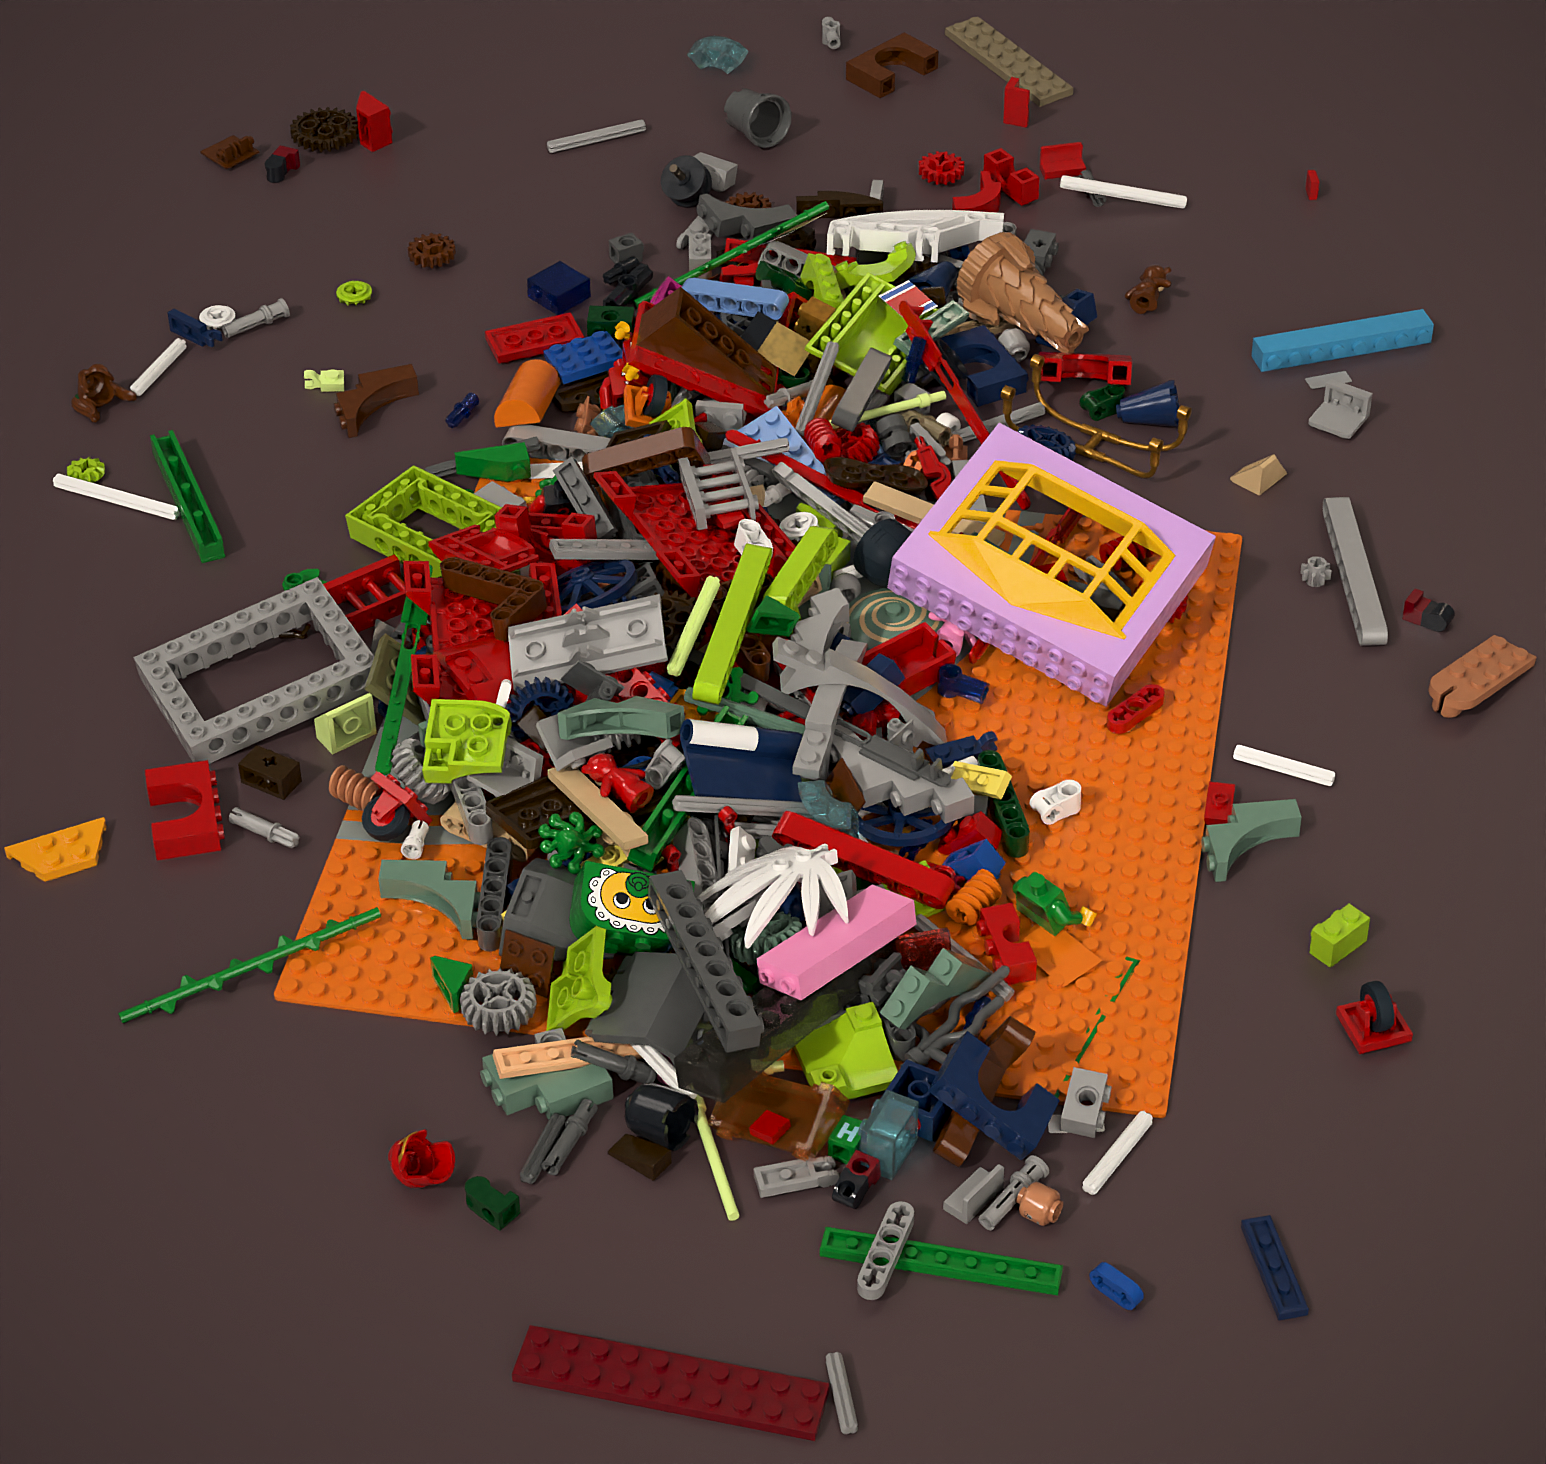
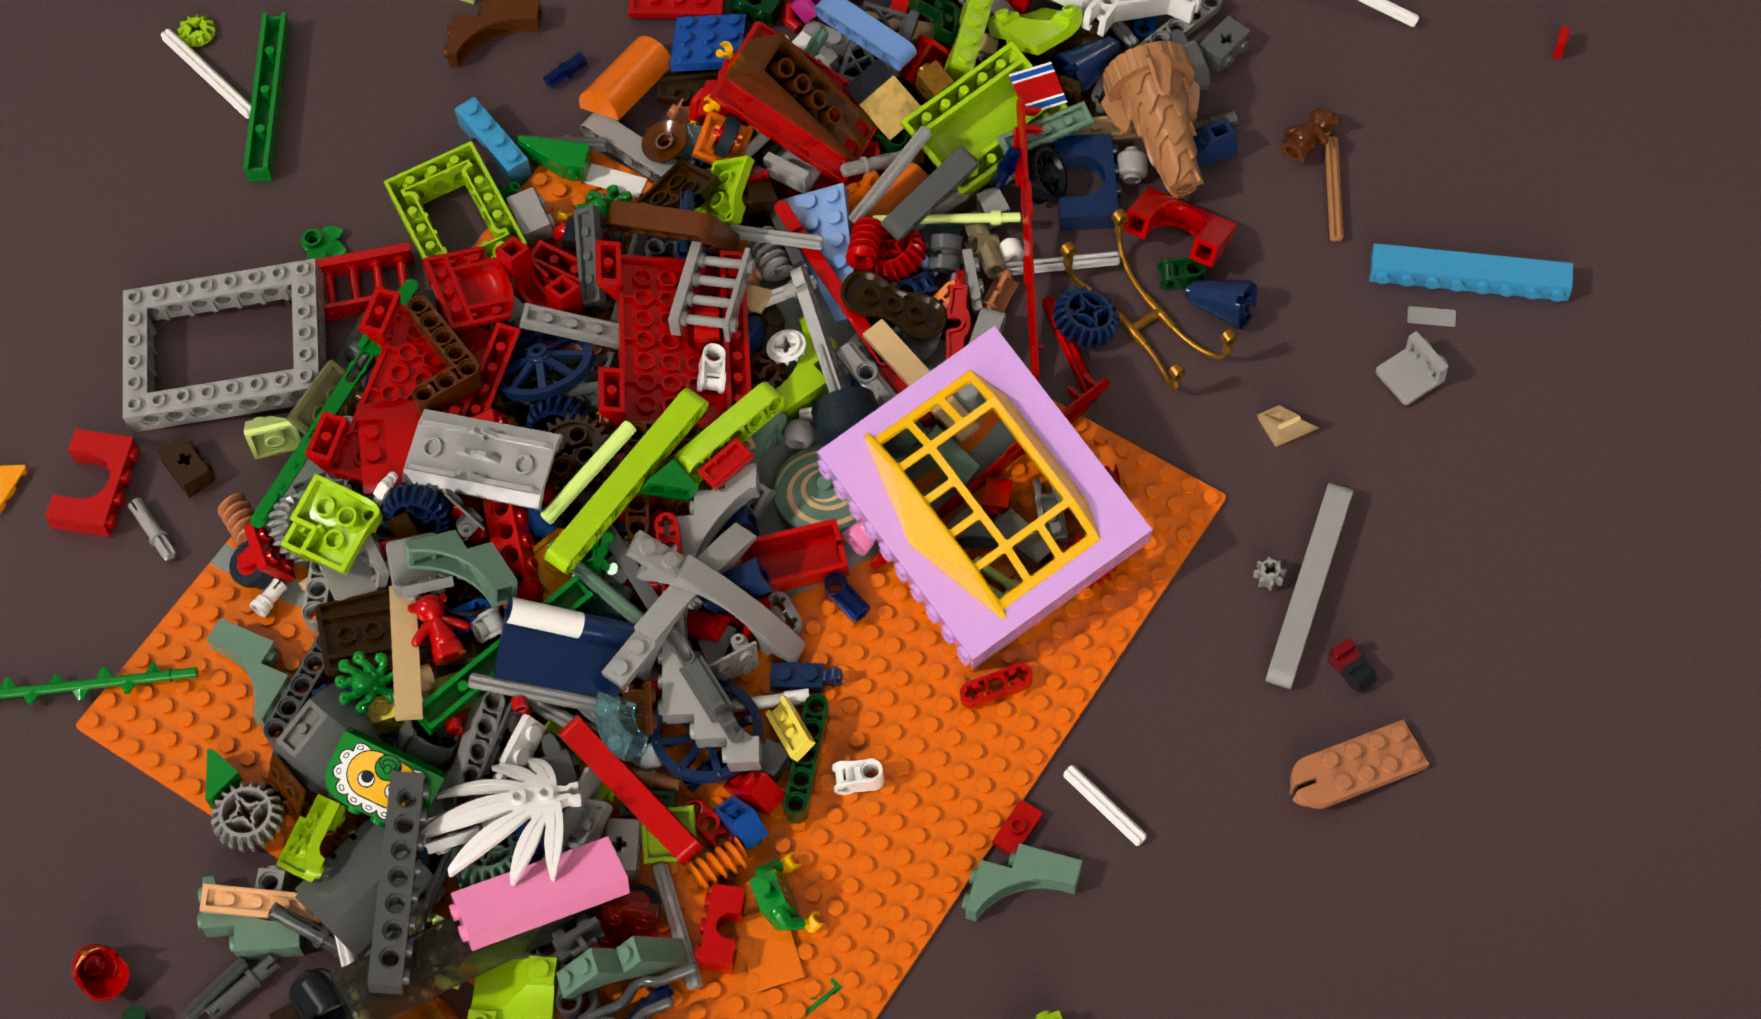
camera: 25 degrees right, 20 degrees up
(399, 457) = (504, 152): none -> dark azure arch
(592, 424) = (662, 134): none -> reddish brown dish
(813, 591) = (725, 464): none -> red plate
(1192, 320) = (1334, 189): none -> medium nougat axle

